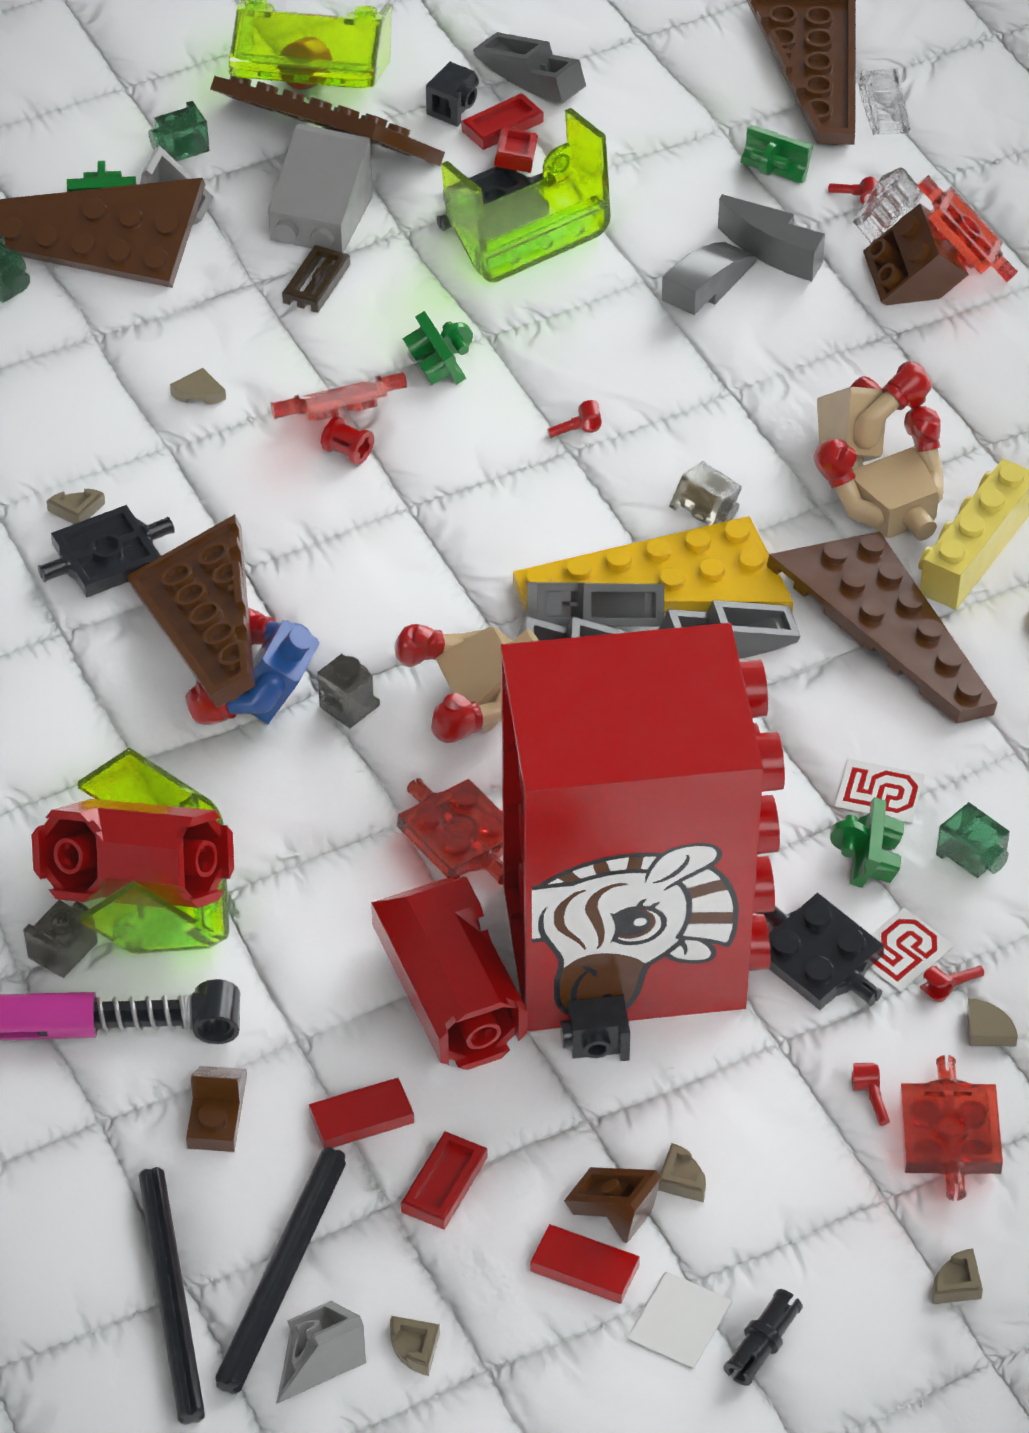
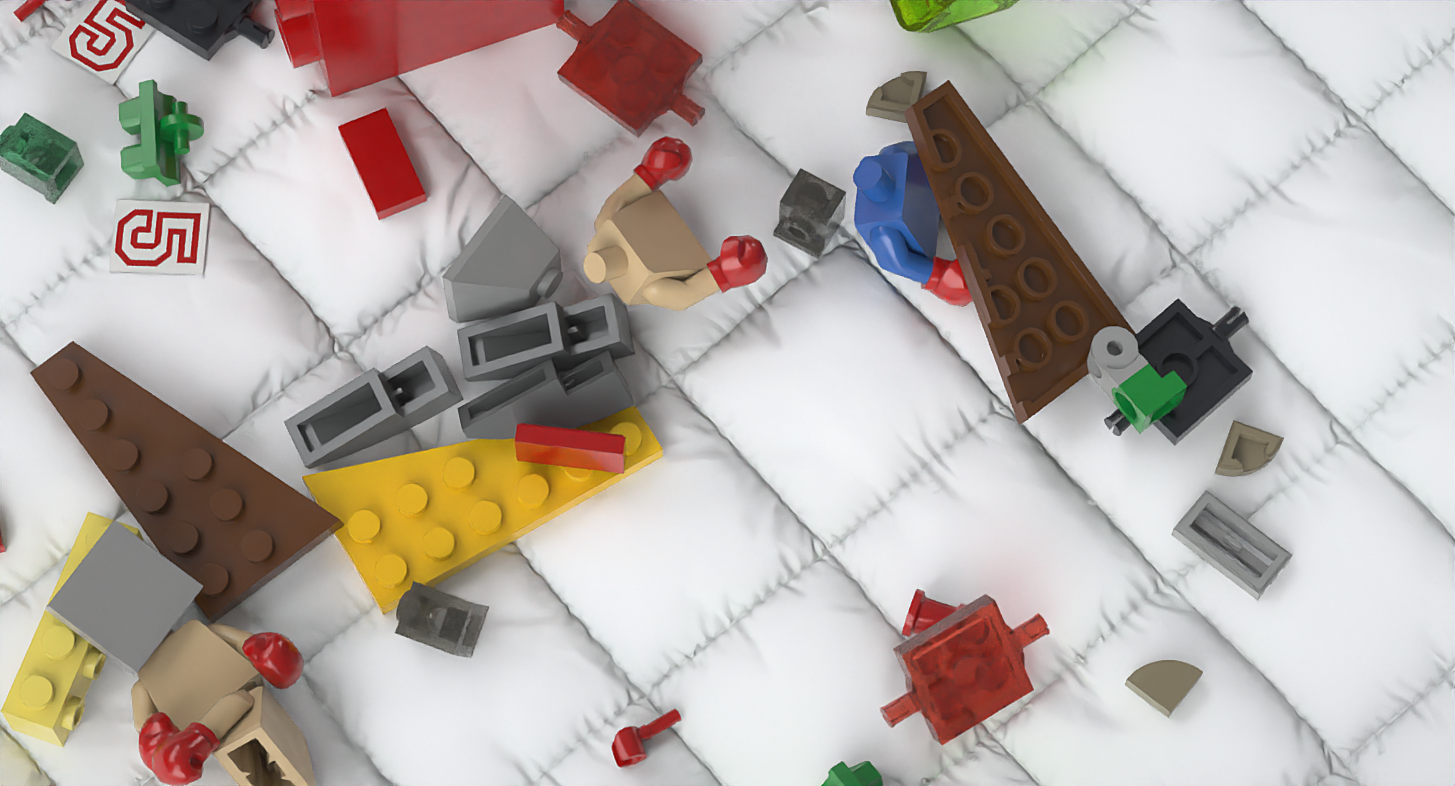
camera: 165 degrees right, 20 degrees up
(109, 454) = (1219, 560): none -> light grey tile
(146, 515) = (1131, 379): none -> leg
(243, 772) = (897, 96): none -> dark tan tile
(584, 554) = (570, 448): none -> red tile
(939, 510) = (124, 597): none -> light grey tile

